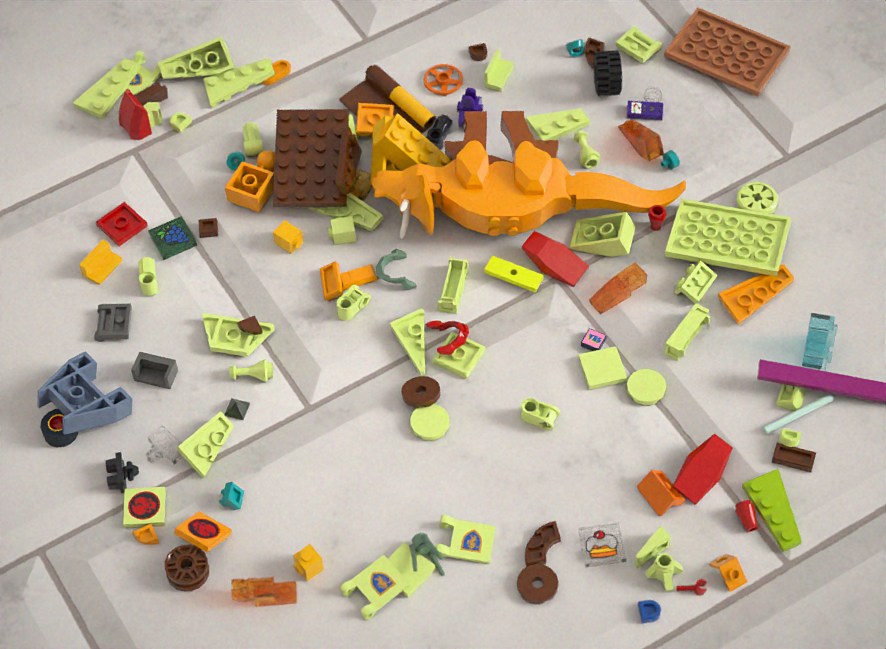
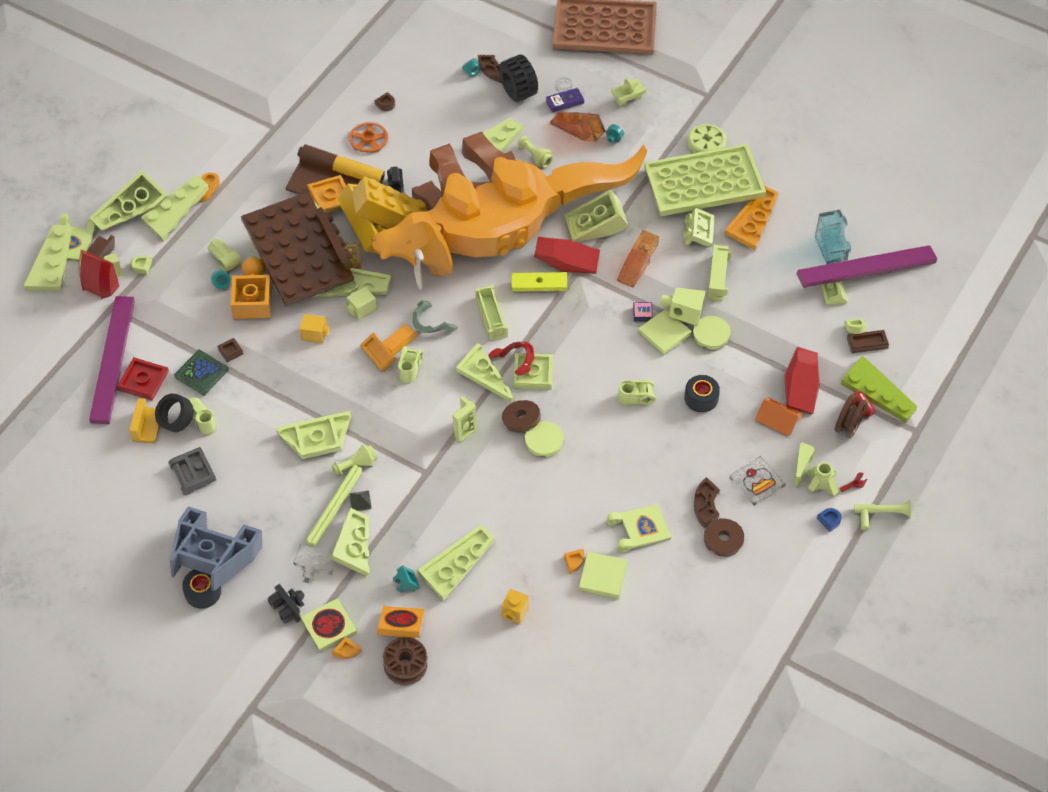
camera: 30 degrees left, 0 degrees up
(106, 197) = (112, 360): none -> magenta tile
(132, 269) = (163, 408): none -> black tyre
(154, 370) = (261, 497): dark grey panel -> none
(211, 403) = (333, 506): none -> yellowish green axle
(250, 325) = (330, 420): reddish brown tile -> none
(264, 591) = (490, 649): clear orange plate -> none
(280, 500) = (453, 564): none -> yellowish green wing
(365, 374) = (465, 419): none -> yellowish green bracket
(378, 584) = (588, 597): yellowish green flag -> none
(389, 544) = (574, 560): none -> light orange tile
(423, 545) = (606, 546): sand green plant -> none
(469, 102) = (412, 152): dark purple hinge -> none
(497, 72) = (416, 114): yellowish green panel -> none
(599, 440) = (702, 393): none -> black wheel
(634, 350) = (685, 304): none -> yellowish green torso
(635, 48) = (525, 45): yellowish green plate -> none
(656, 216) = (635, 183): red cone -> none
(686, 616) = (864, 509): none -> yellowish green piece
(708, 123) = (627, 91): none -> yellowish green hips
(724, 521) = (851, 416): none -> reddish brown wheel
(730, 571) = (876, 454): light orange bracket -> none
(798, 413) = (848, 305): light aqua bar -> none

